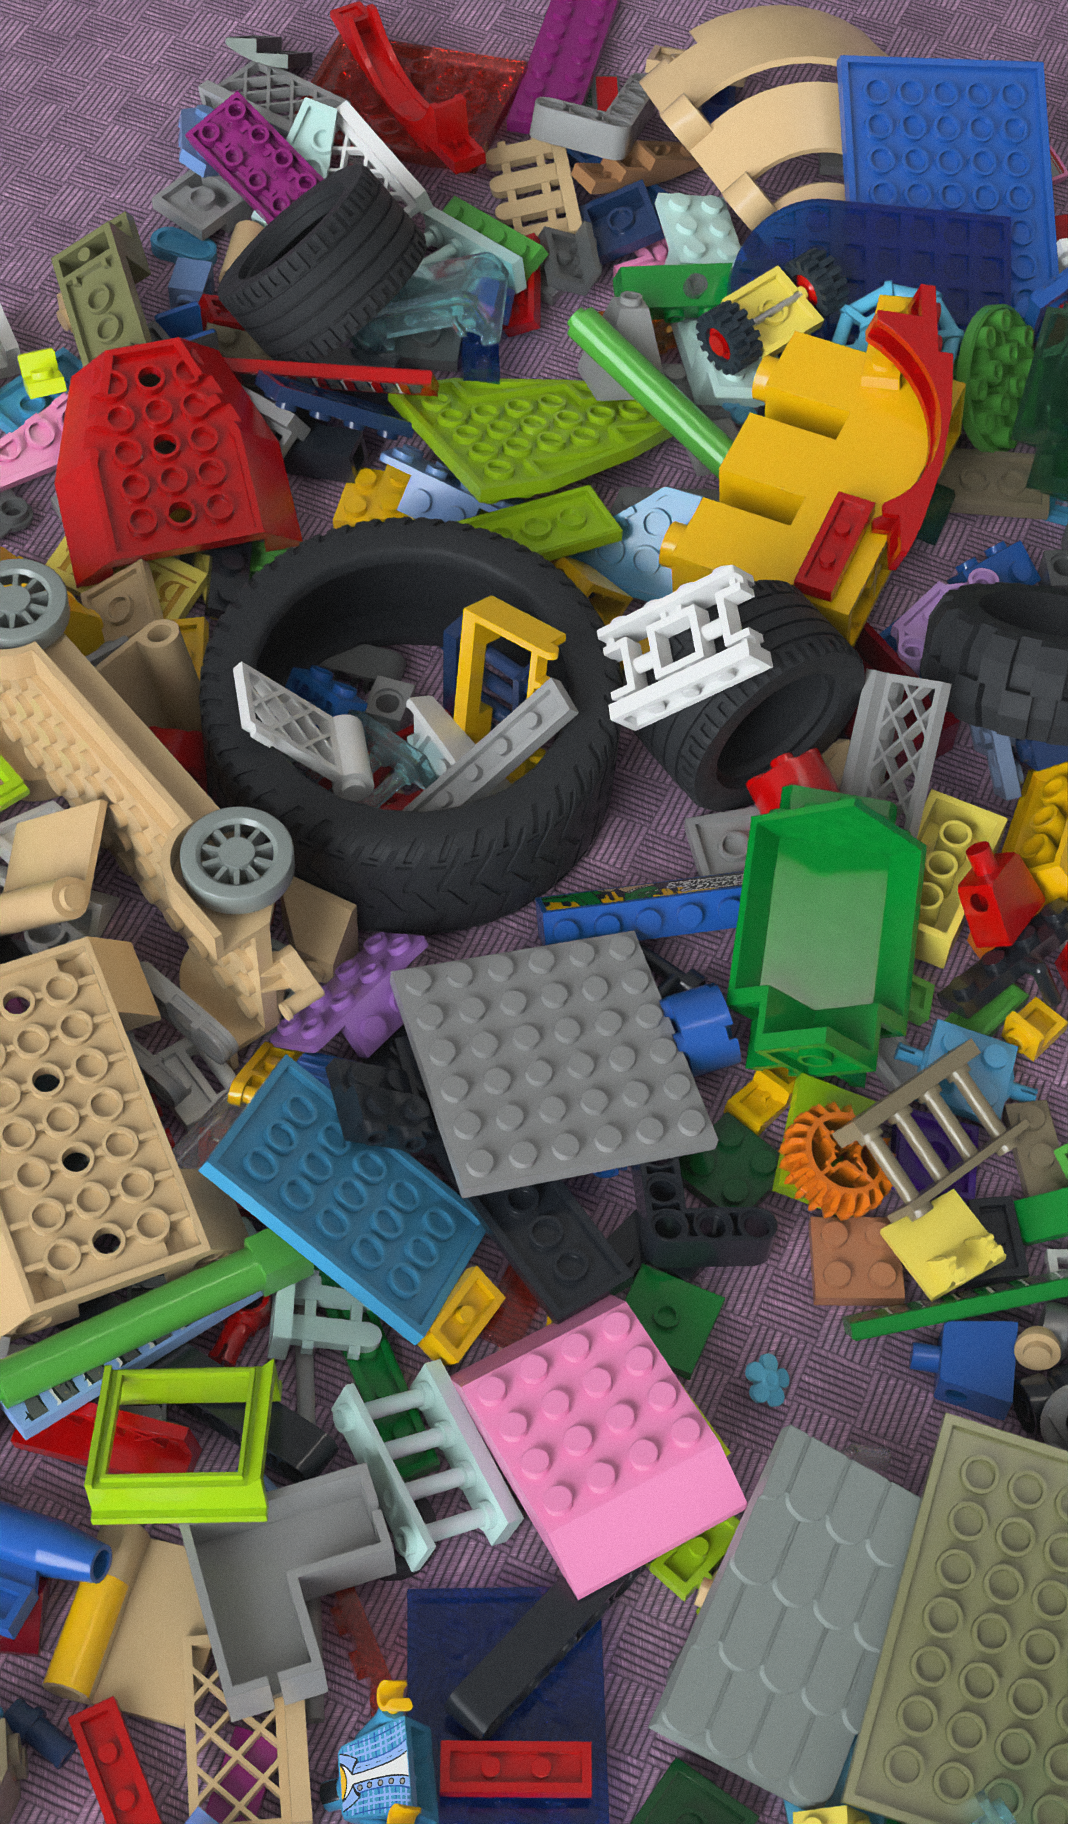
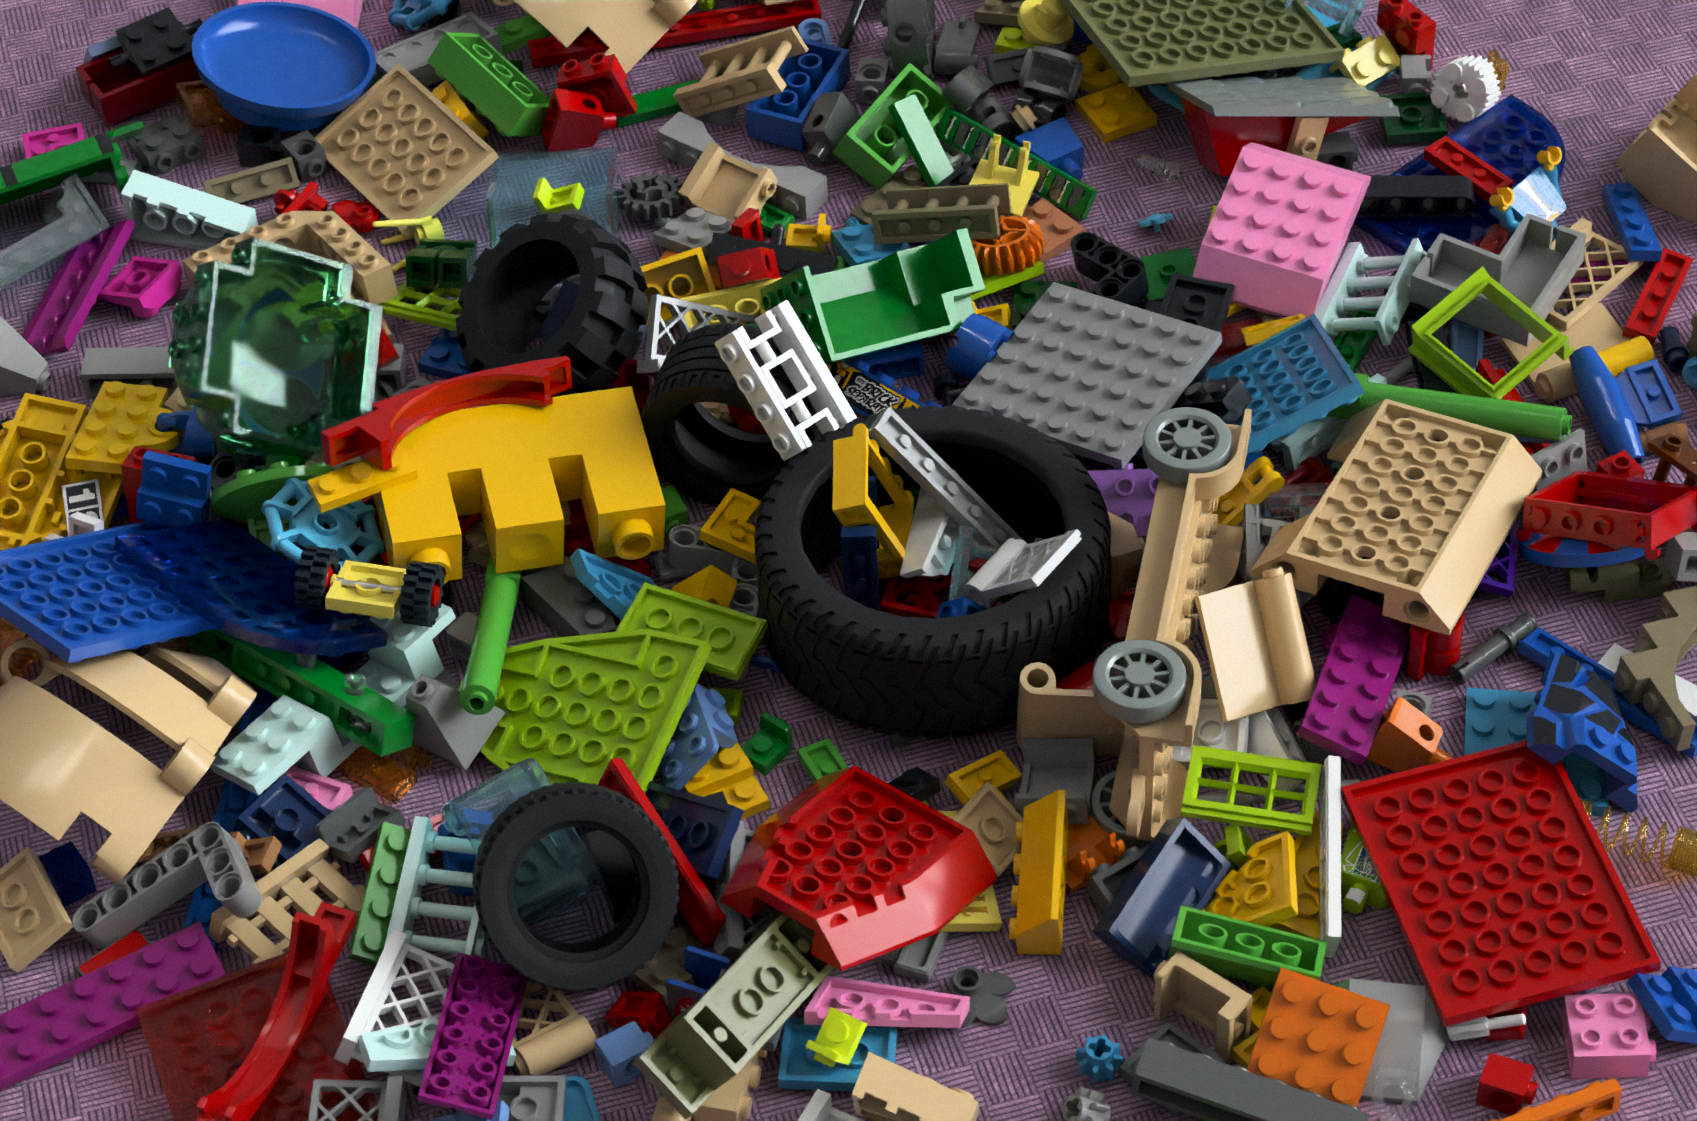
camera: 125 degrees left, 10 degrees down
(834, 546) = (587, 408): red plate -> none

